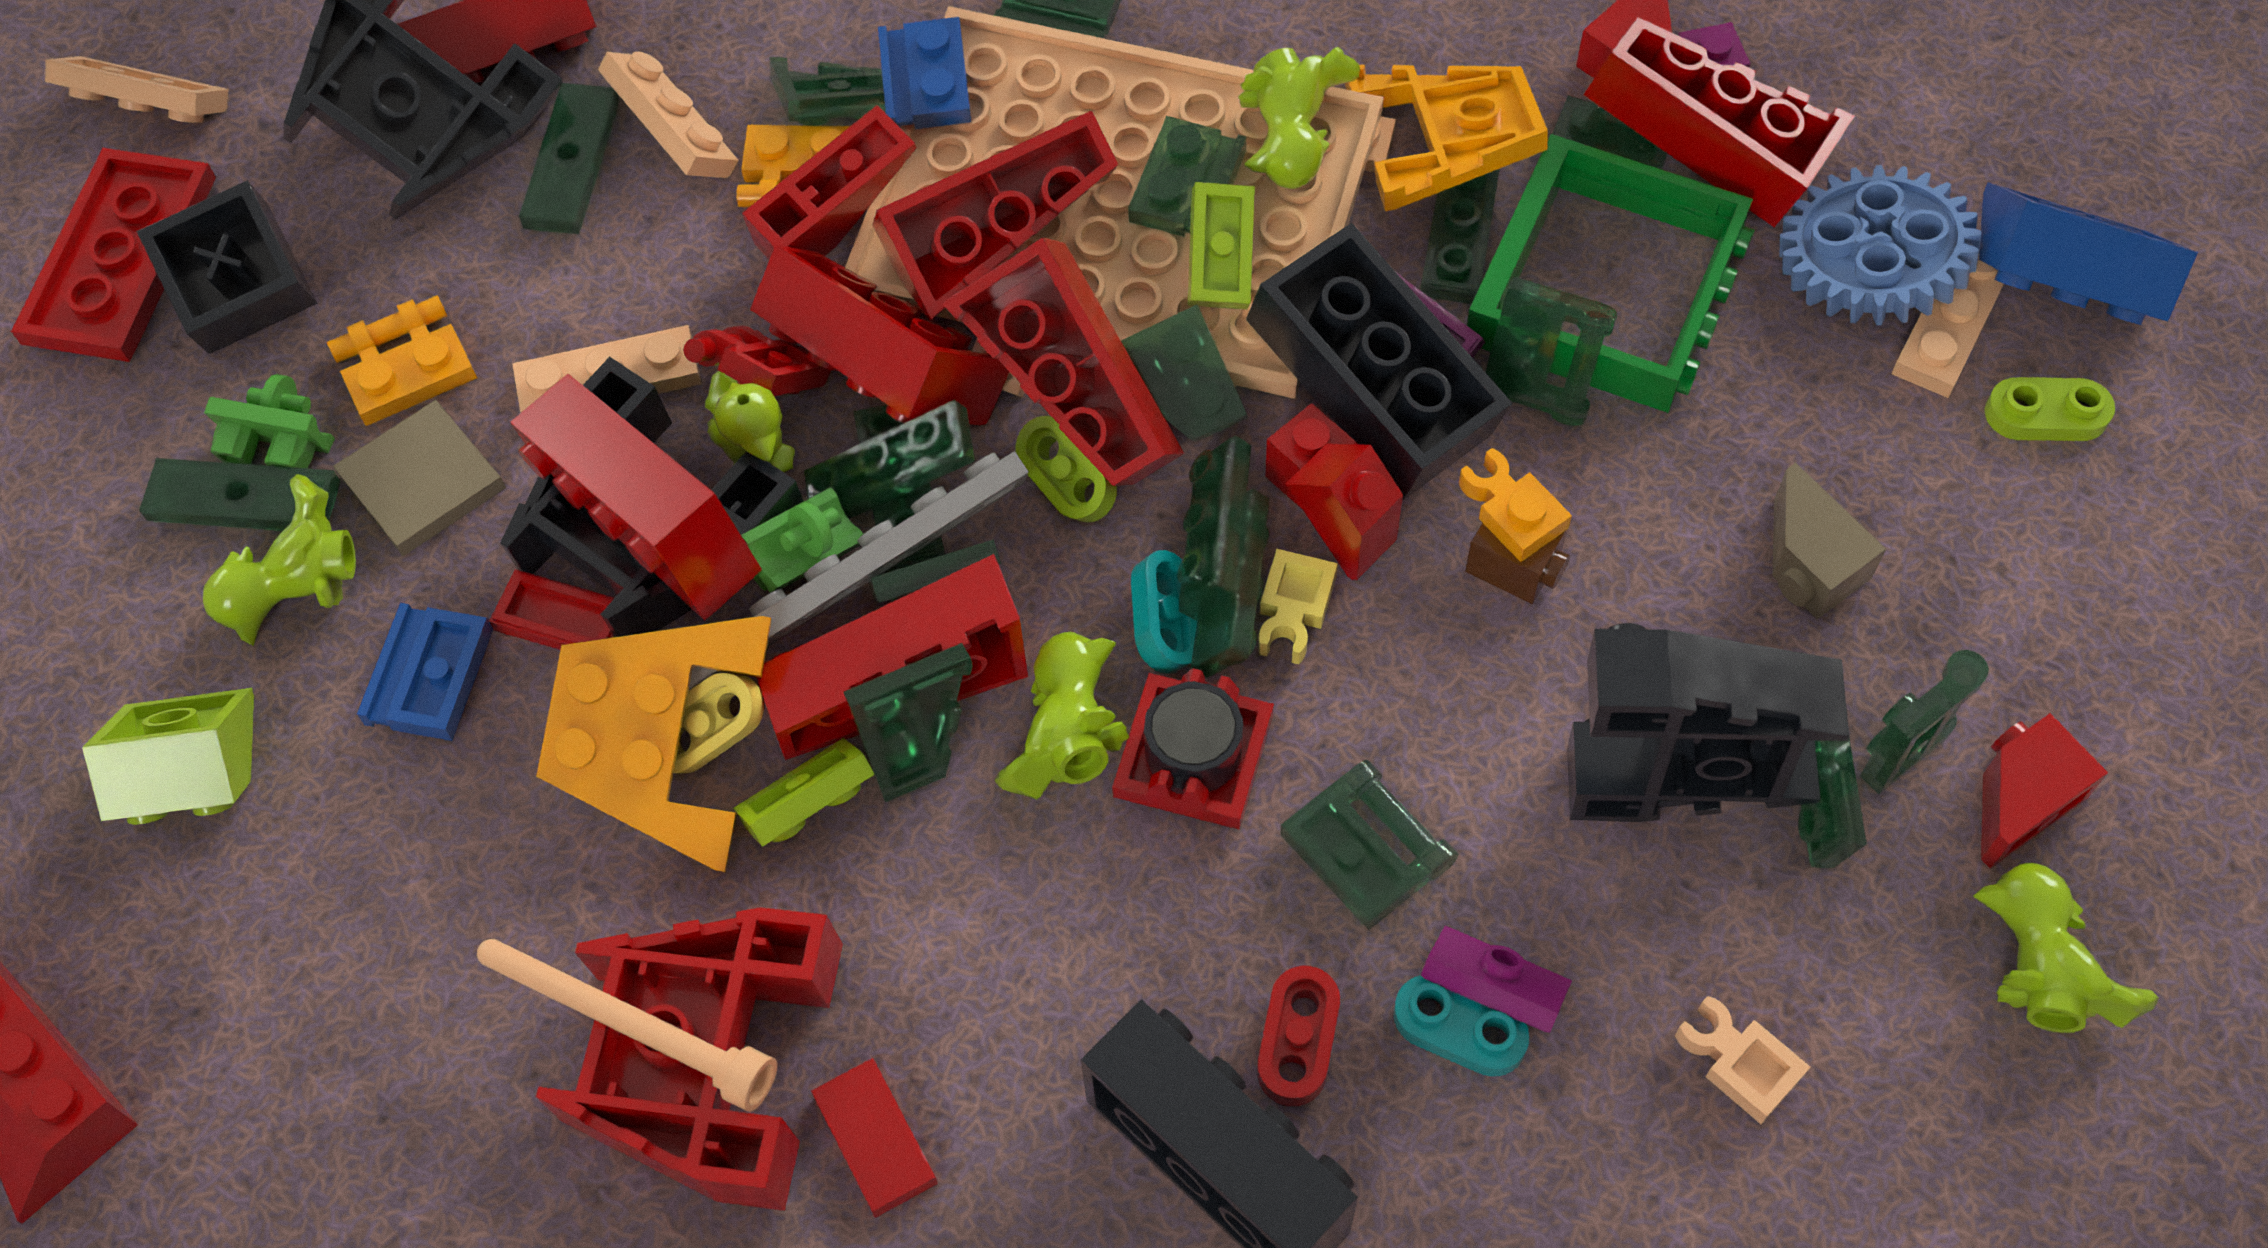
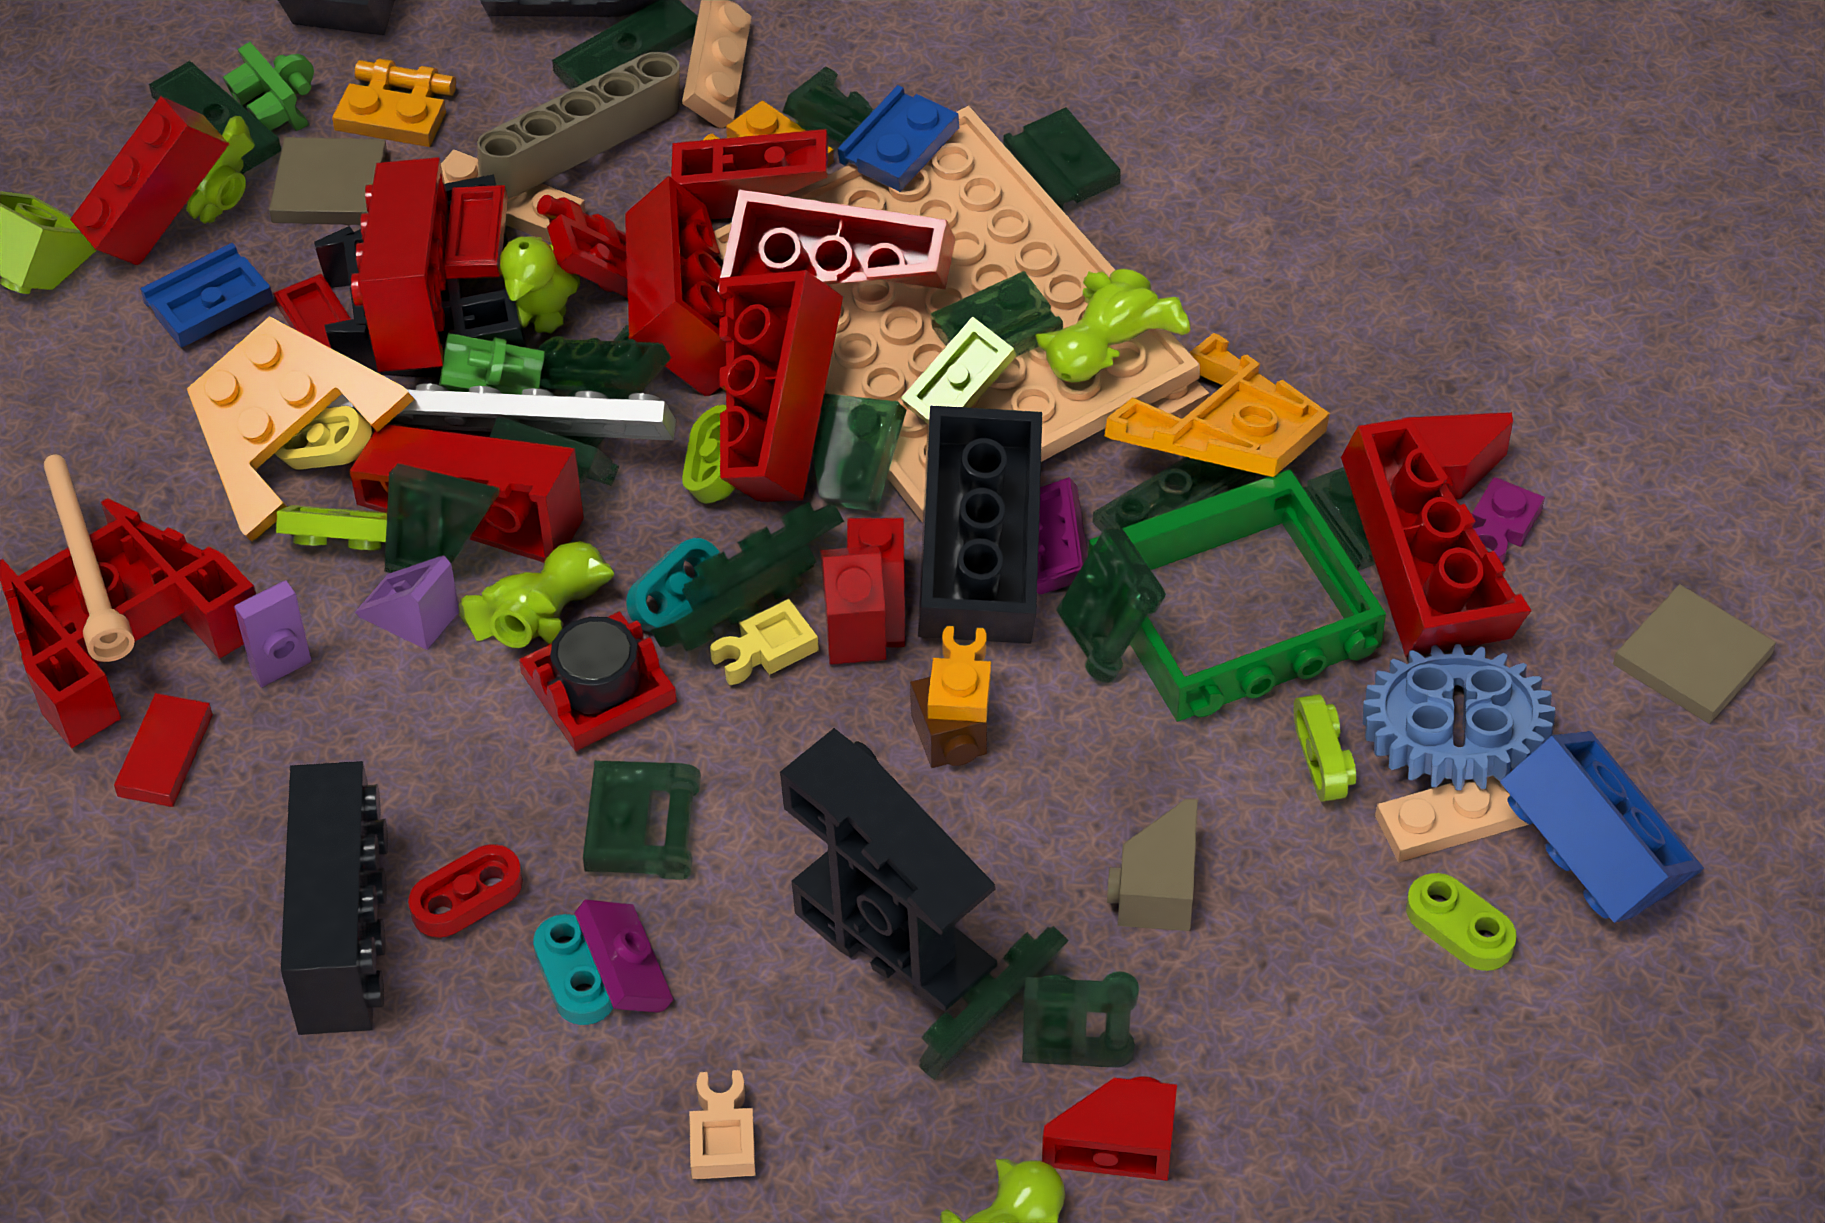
camera: 40 degrees right, 10 degrees down
(270, 603) = (149, 181): none -> red brick
(619, 256) = (581, 123): none -> dark tan beam
(661, 415) = (475, 231): none -> red tile
(881, 943) = (273, 633): none -> medium lavender plate
(947, 810) = (414, 602): none -> medium lavender slope
(1811, 347) = (1318, 735): none -> lime plate
(1961, 69) = (1694, 653): none -> dark tan tile

